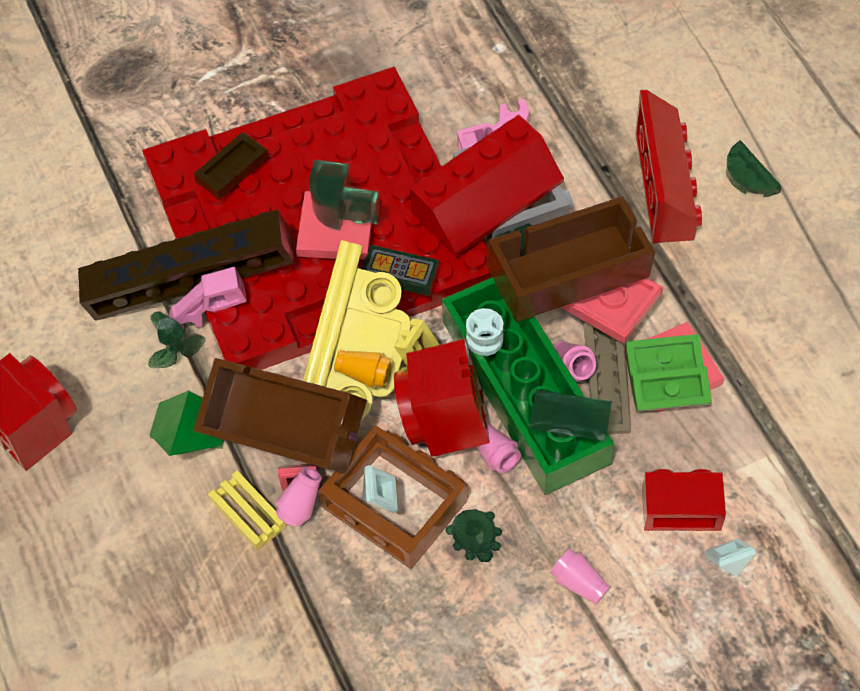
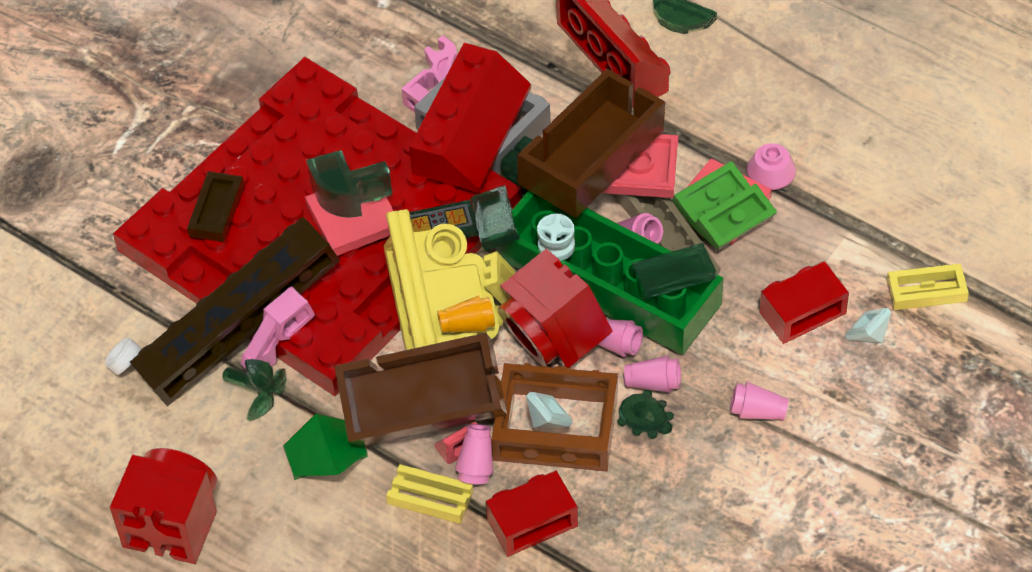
camera: 30 degrees left, 5 degrees down
(83, 258) = (121, 355): none -> white tile
(314, 574) = (531, 513): none -> red brick
(447, 288) = (494, 218): none -> clear green tile
(507, 502) = (654, 374): none -> bright pink cone
(738, 357) = (772, 166): none -> bright pink cone
(808, 557) = (928, 292): none -> light yellow tile

